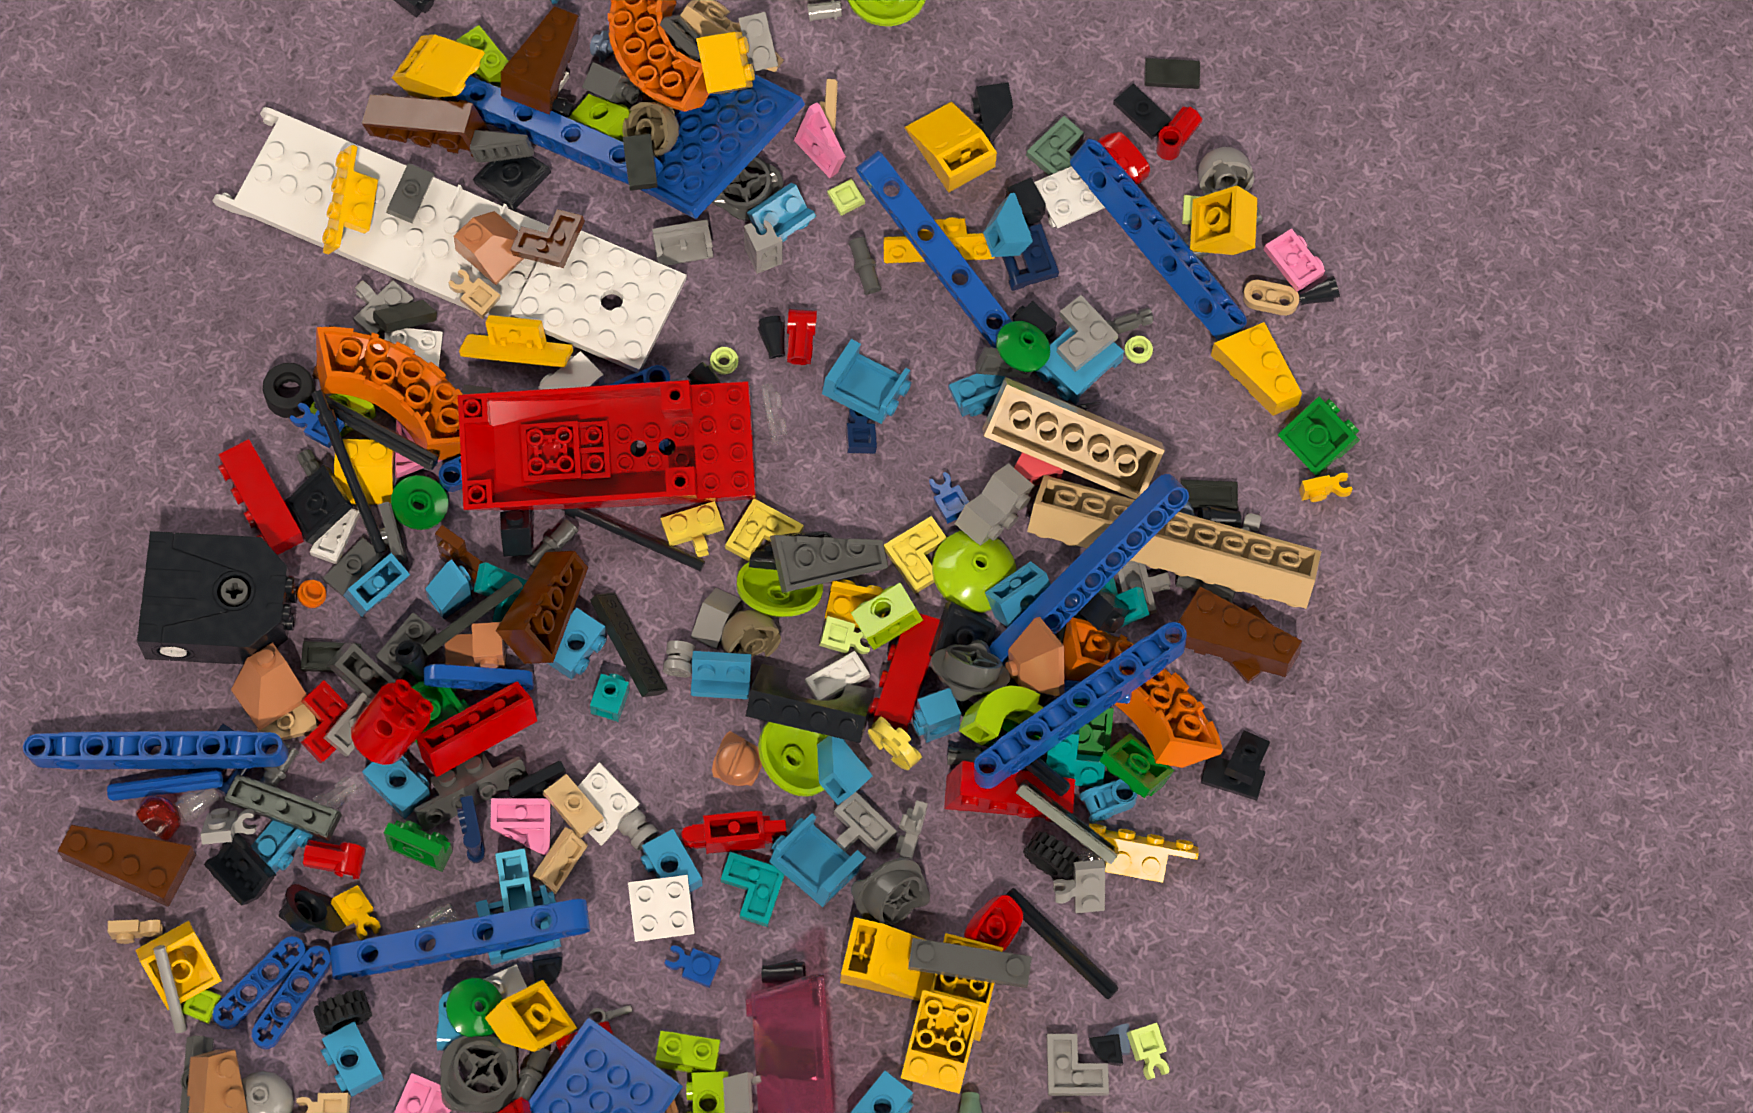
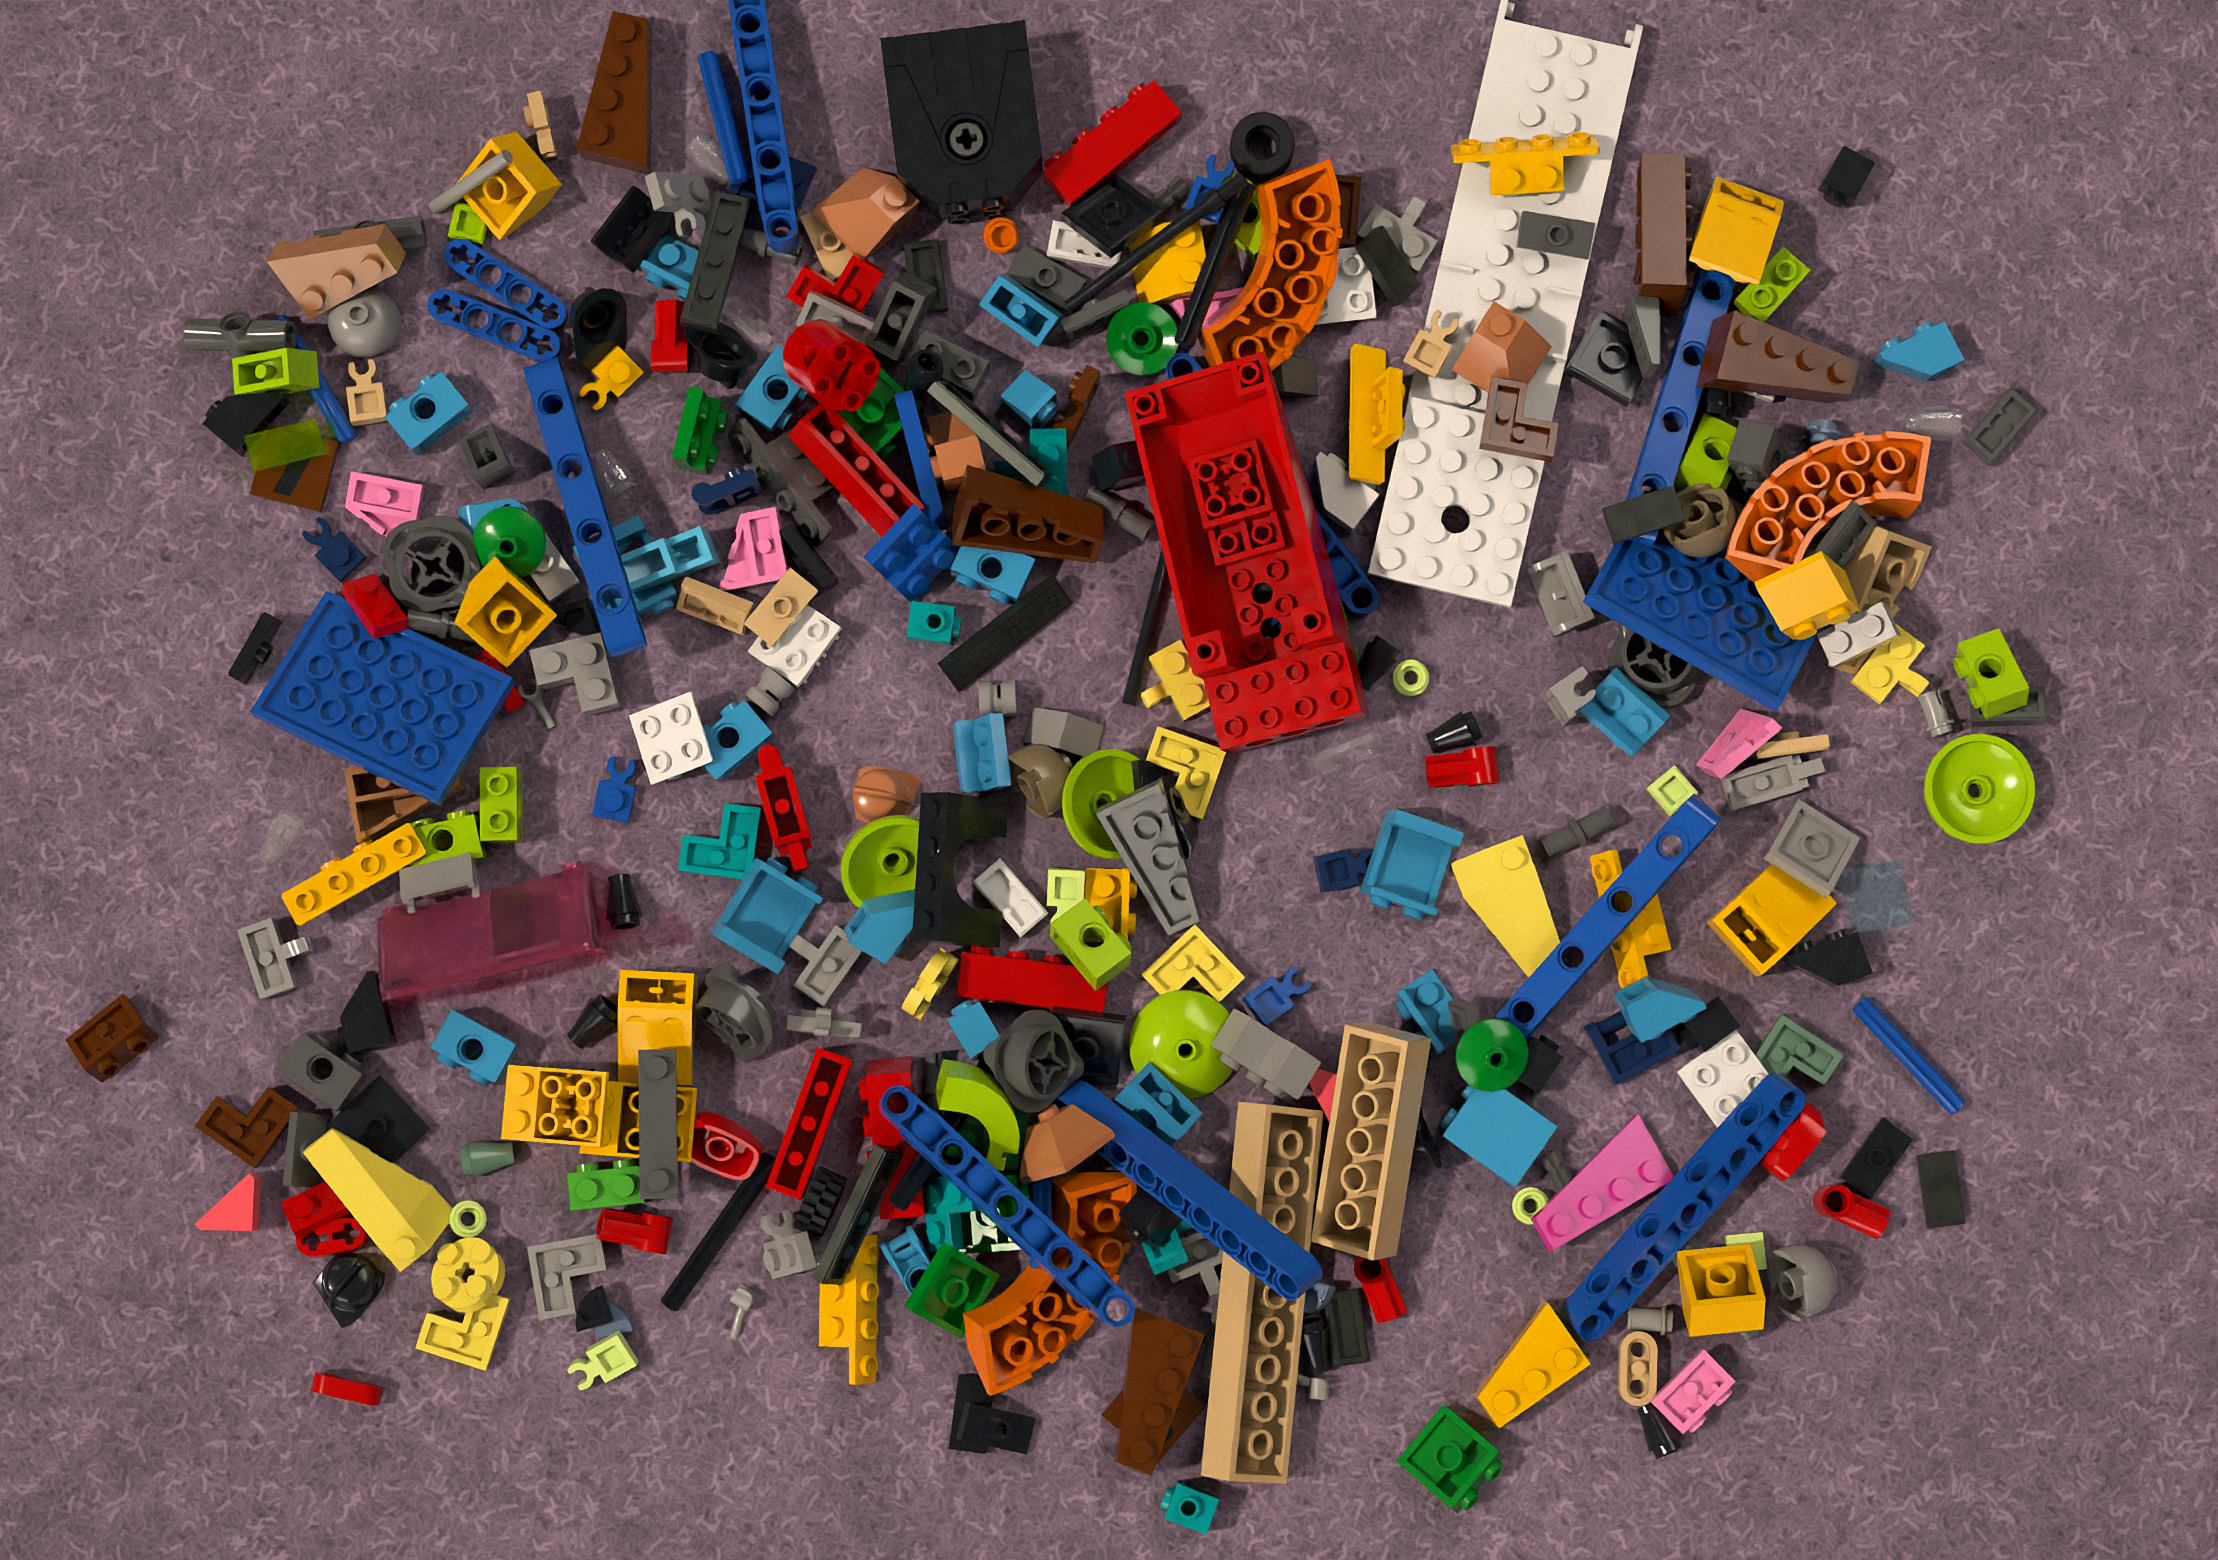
camera: 85 degrees right, 15 degrees up
(159, 816) = (686, 121): clear red hair -> none
(342, 1011) = (478, 388): black tyre -> none
(359, 819) = (722, 354): none -> black piece
(397, 1019) = (486, 456): none -> dark grey slope
(553, 697) = (912, 554): none -> blue plate
(589, 965) = (582, 662): none -> light grey brick
(785, 34) = (1890, 665): none -> light yellow plate
(852, 129) = (1768, 781): none -> light grey hinge
(875, 1011) = (594, 1020): none -> black cone
(906, 319) = (1510, 900): none -> light yellow wedge
(908, 107) = (1811, 848): none -> light grey plate
(951, 77) = (1875, 897): none -> clear light blue piece
(988, 854) = (809, 1124): none -> red brick
(1011, 1020) = (605, 1187): none -> bright green brick
(1050, 1001) = (642, 1230): none -> red piece
(1071, 76) = (1908, 1055): none -> blue axle
(1091, 335) = (1528, 1141): light grey plate -> none
(1118, 933) = (743, 1298): none -> light grey hand
(1133, 293) = (1612, 1180): none -> dark pink wing
(1185, 462) = (1381, 1290): none -> red piece
(1238, 276) = (1650, 1319): none -> light grey pin
(1318, 488) = (1376, 1467): yellow plate -> none
(1328, 627) = (1189, 1506): none -> teal brick

